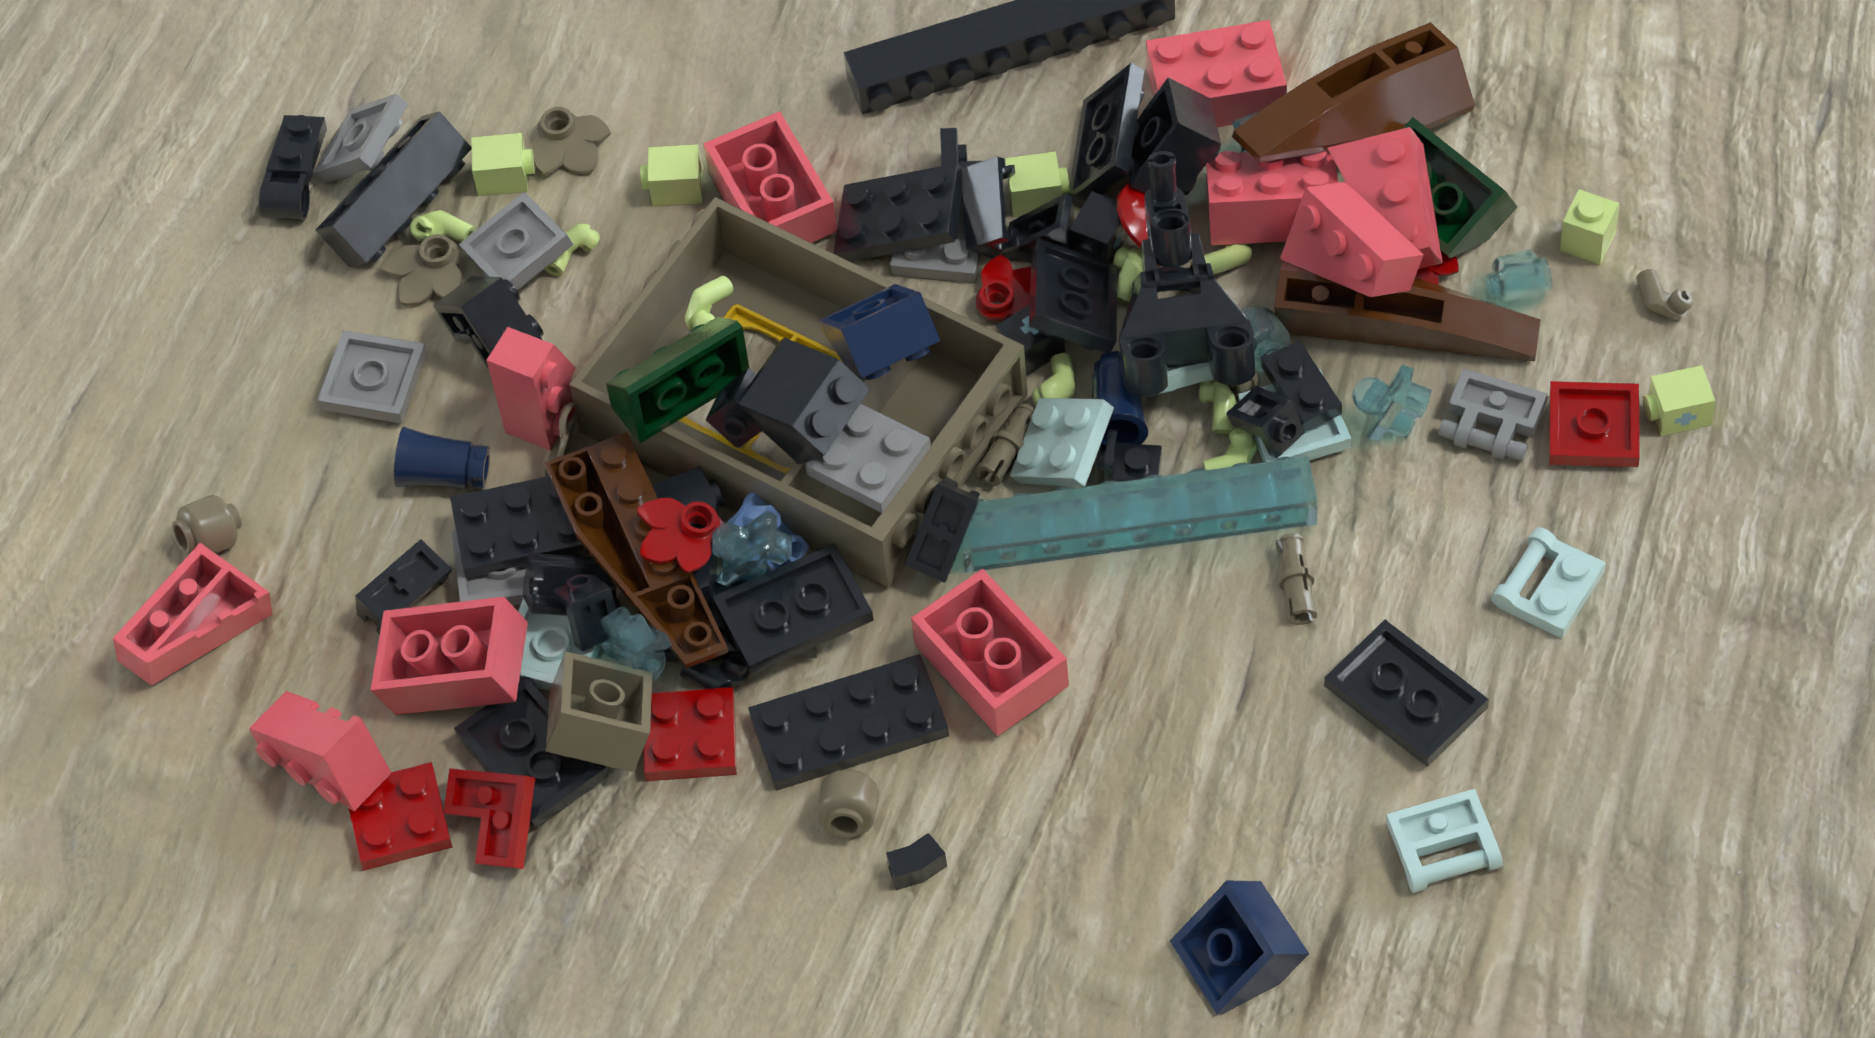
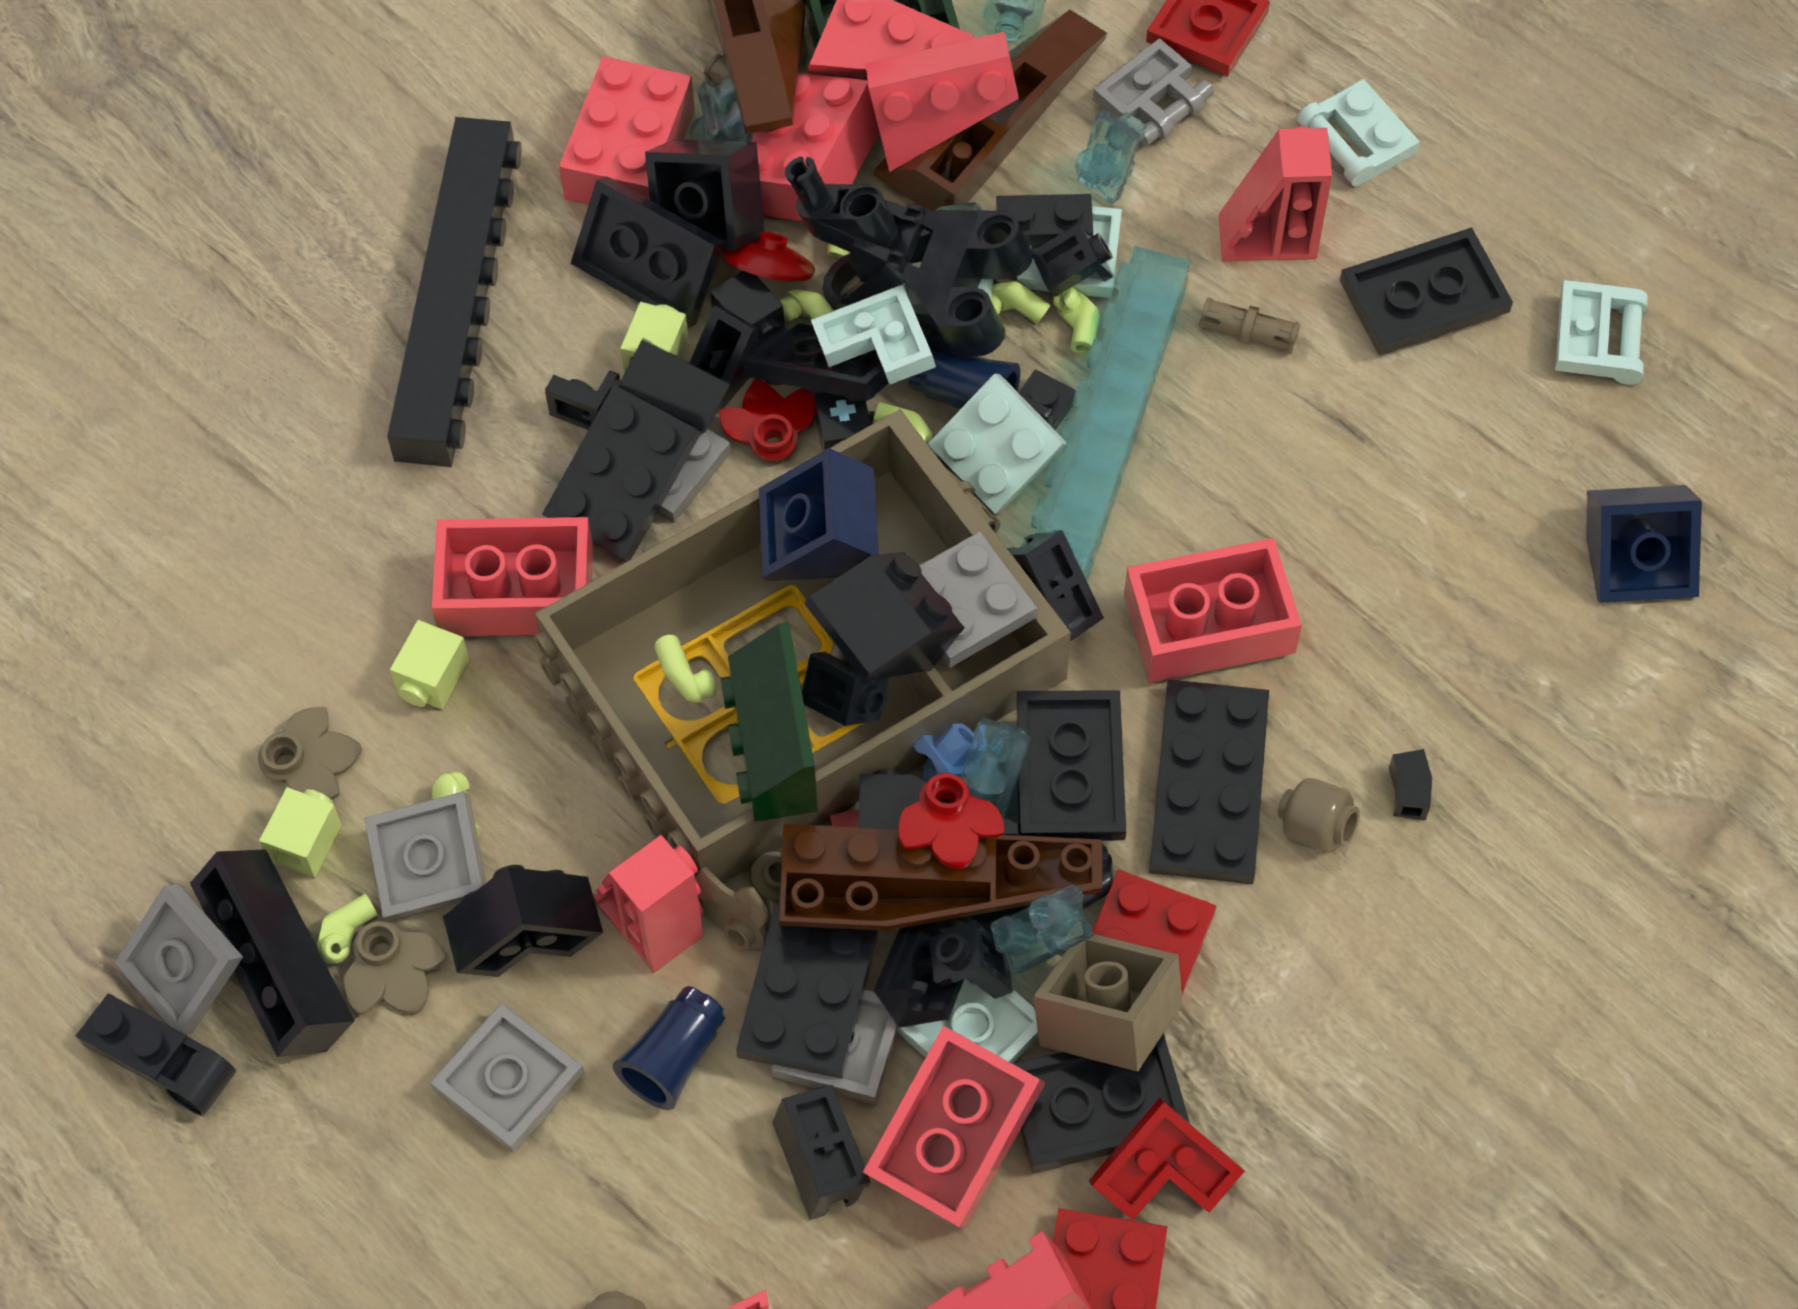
camera: 70 degrees left, 5 degrees up
(1094, 304) = (879, 324): none -> light aqua plate
(1413, 541) = (1280, 200): none -> coral wedge

